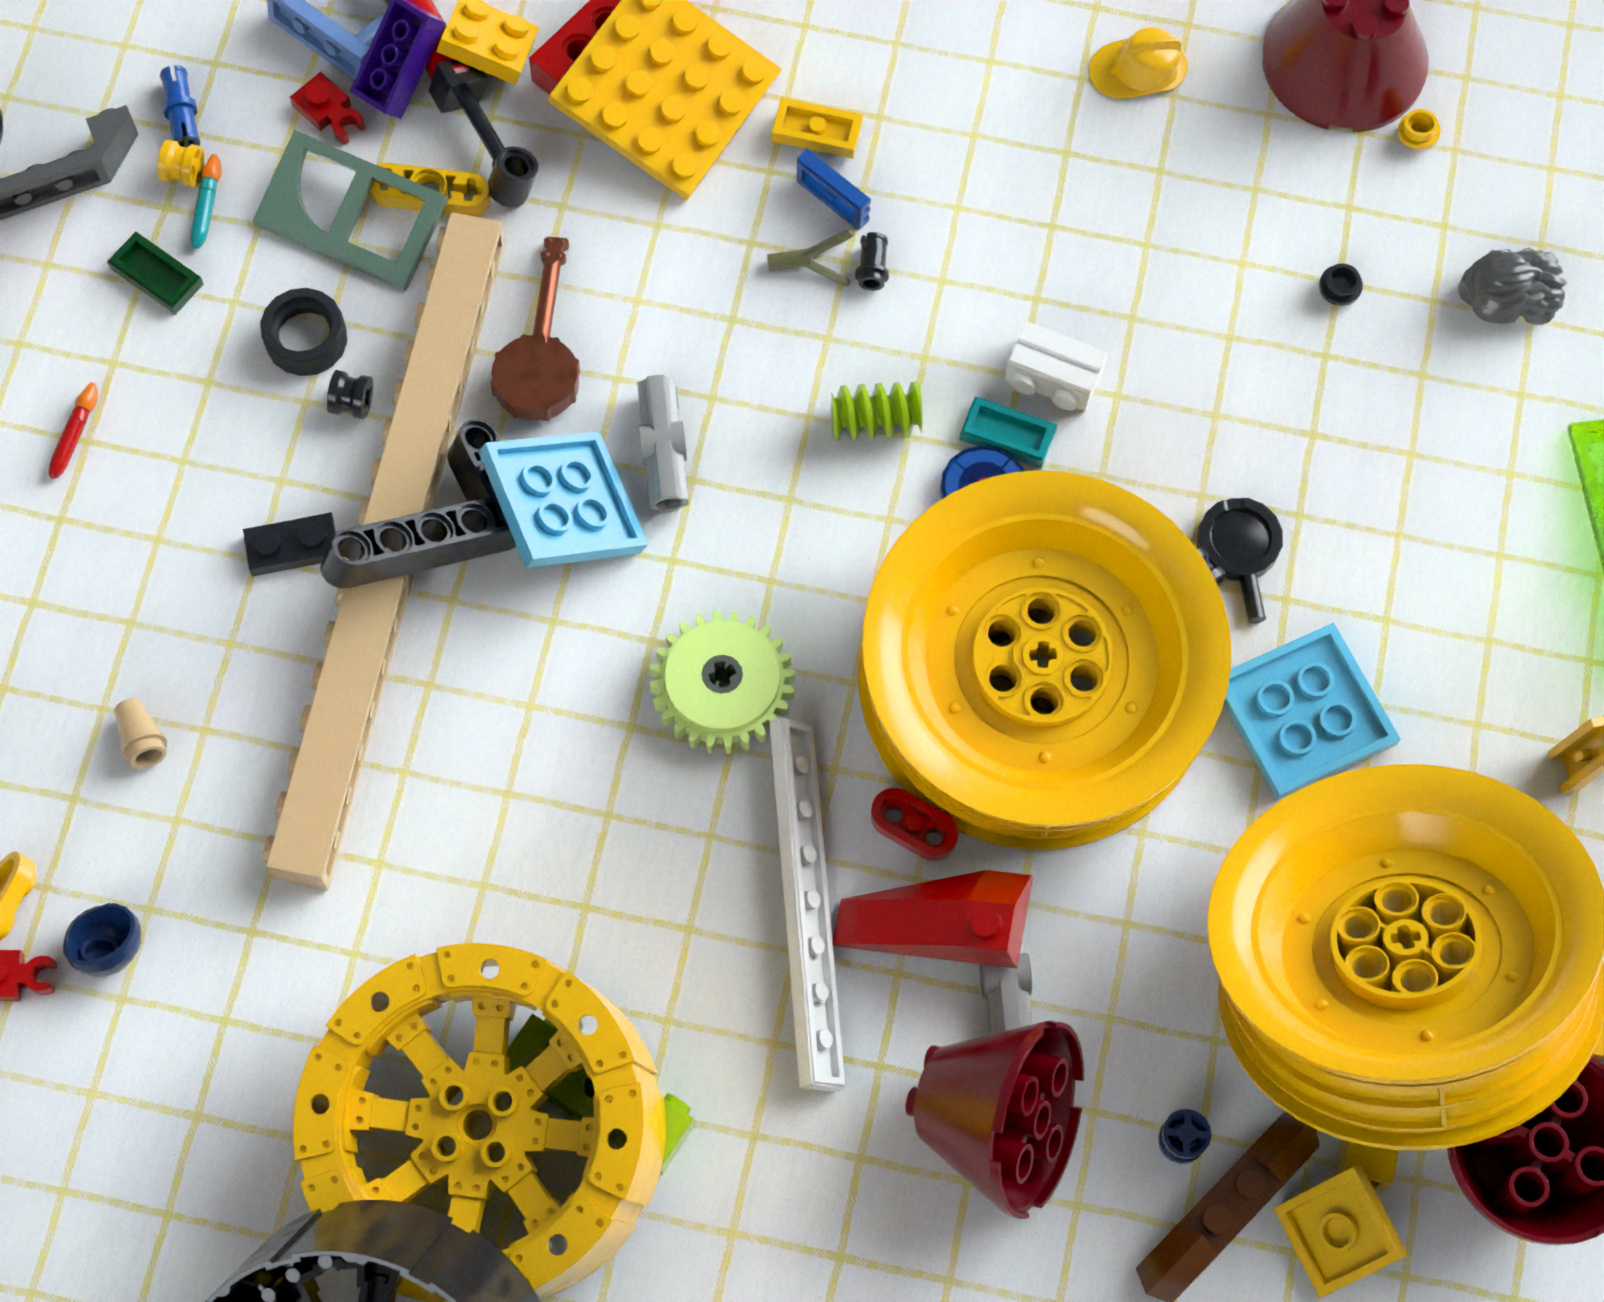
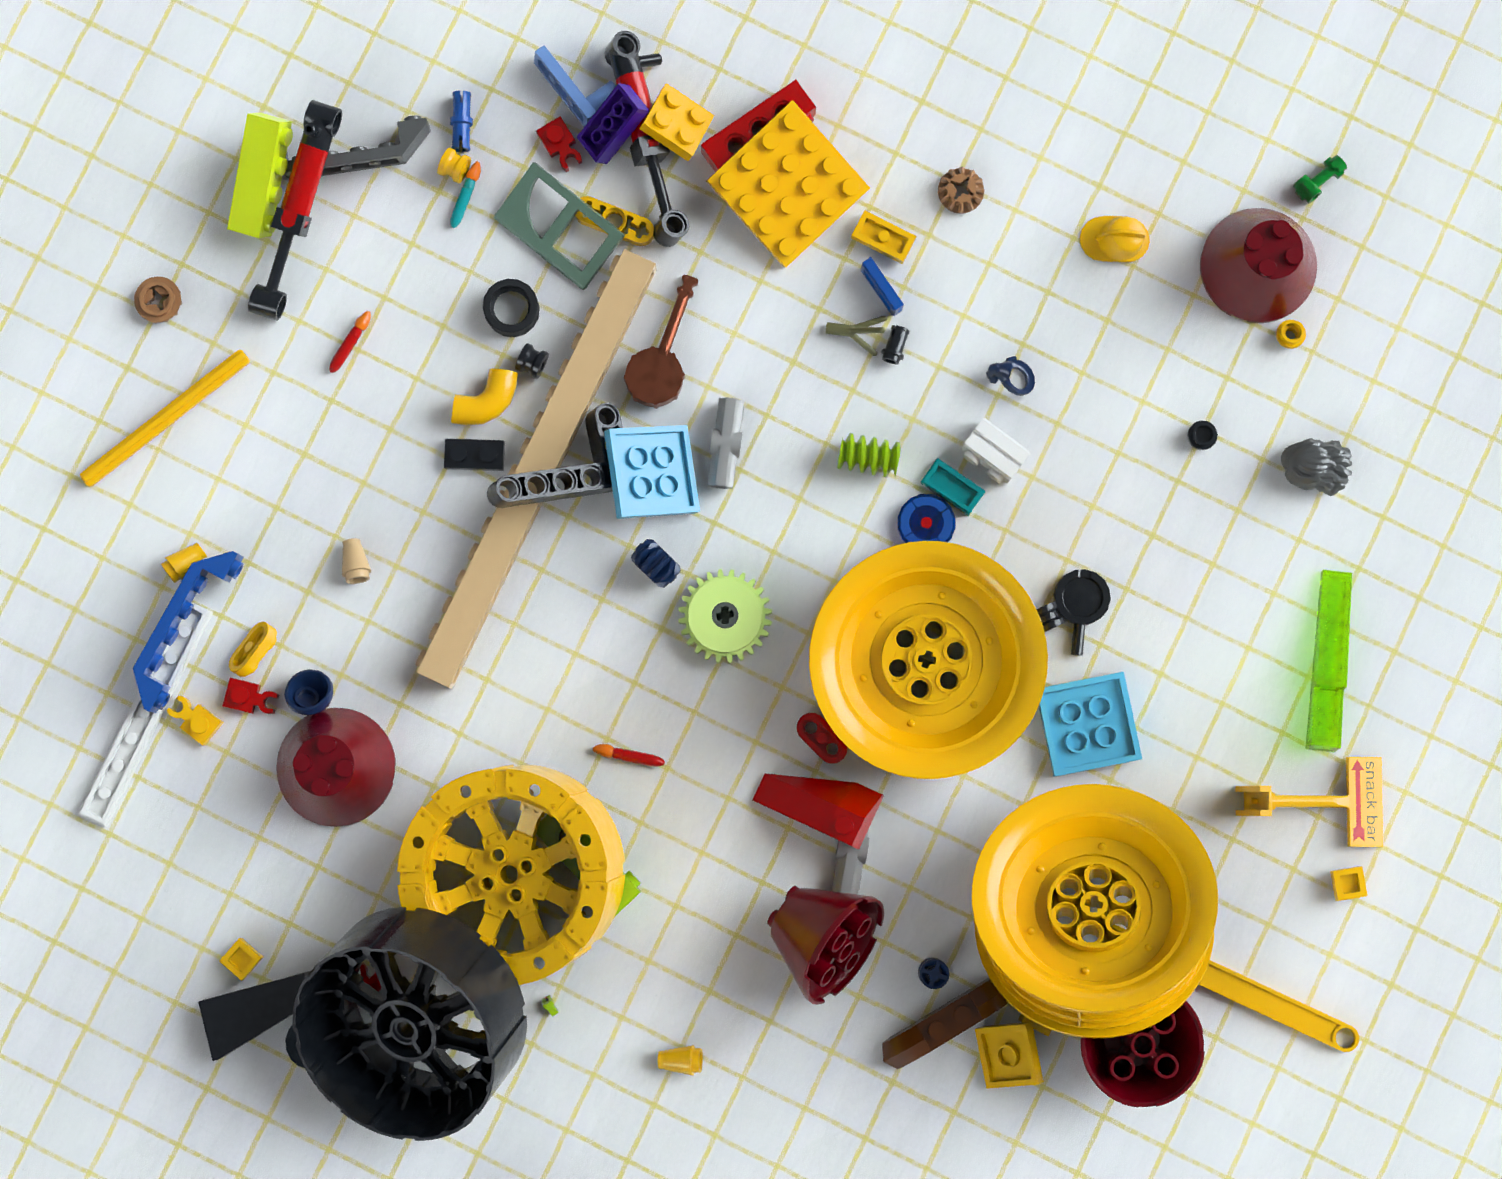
camera: 15 degrees right, 15 degrees up
(155, 272) = (423, 239): dark green tile -> none
(167, 1051) = (336, 767): none -> dark red cone
(296, 468) = (488, 404): none -> yellow cylinder
(599, 626) = (655, 563): none -> dark blue gear
(624, 922) = (628, 755): none -> red piece
(806, 906) = (742, 772): white tile -> none
(920, 60) = (964, 203): none -> medium nougat gear
(1036, 258) = (1003, 370): none -> dark blue piece

